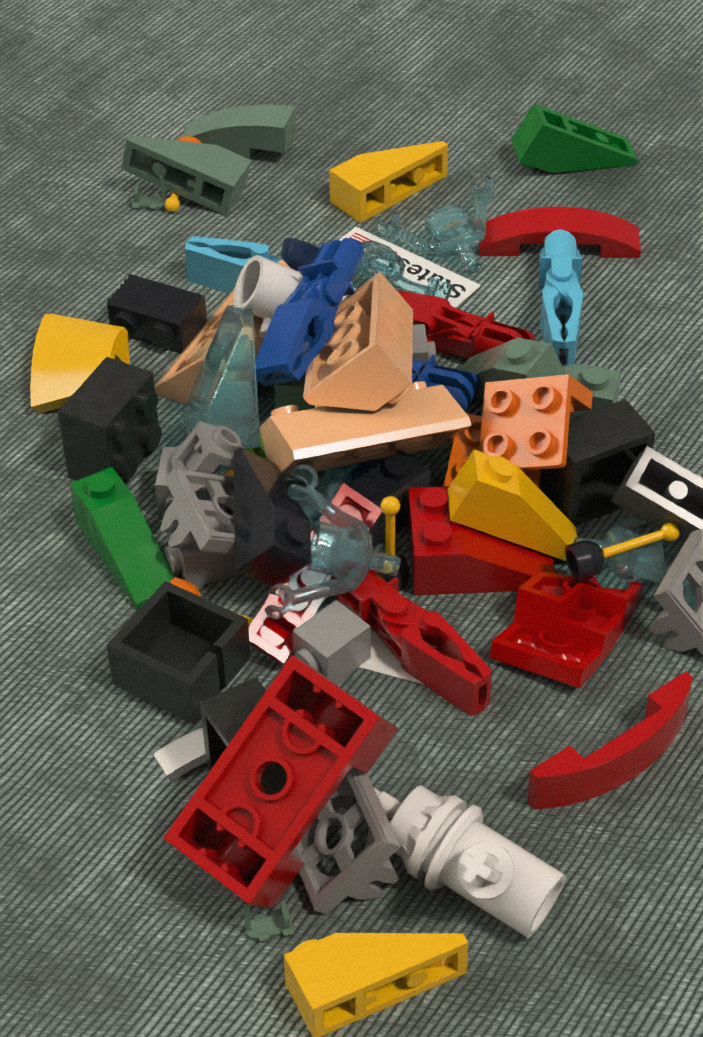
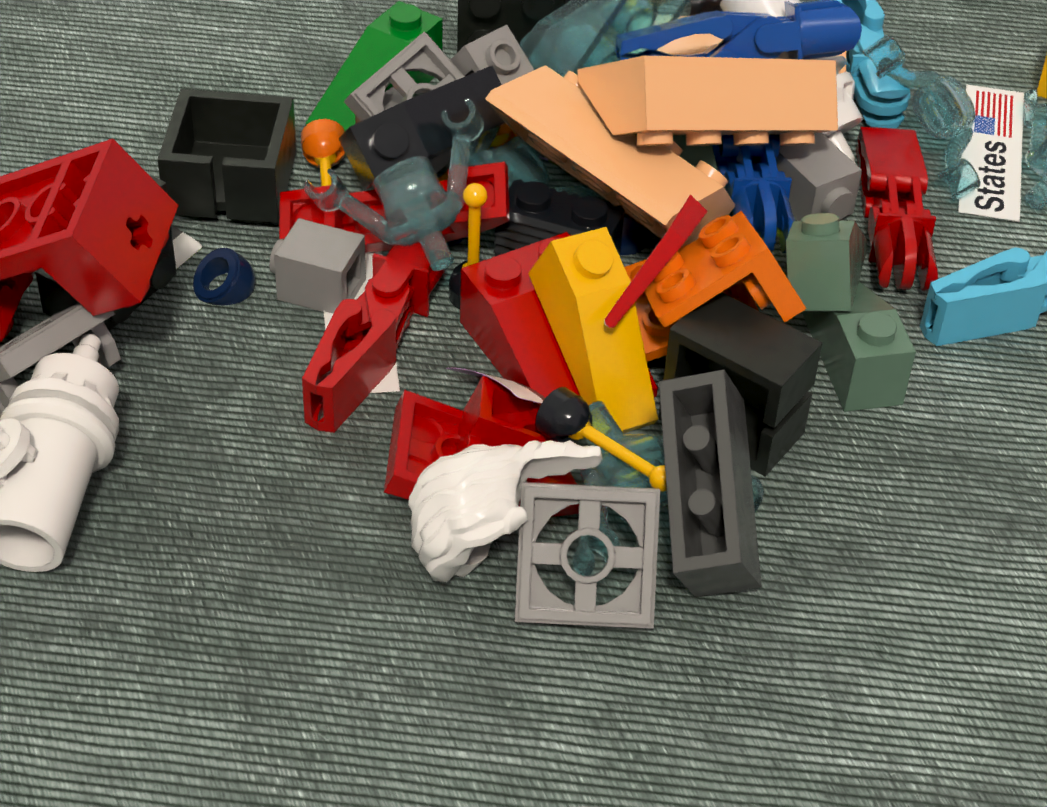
camera: 60 degrees right, 0 degrees up
(298, 252) = (889, 24): dark blue piece -> none
(496, 433) = (676, 235): none -> red sticker
(522, 580) = (518, 389): none -> sticker
(574, 779) = (375, 581): red slope -> none
(648, 628) = (475, 496): none -> white hair

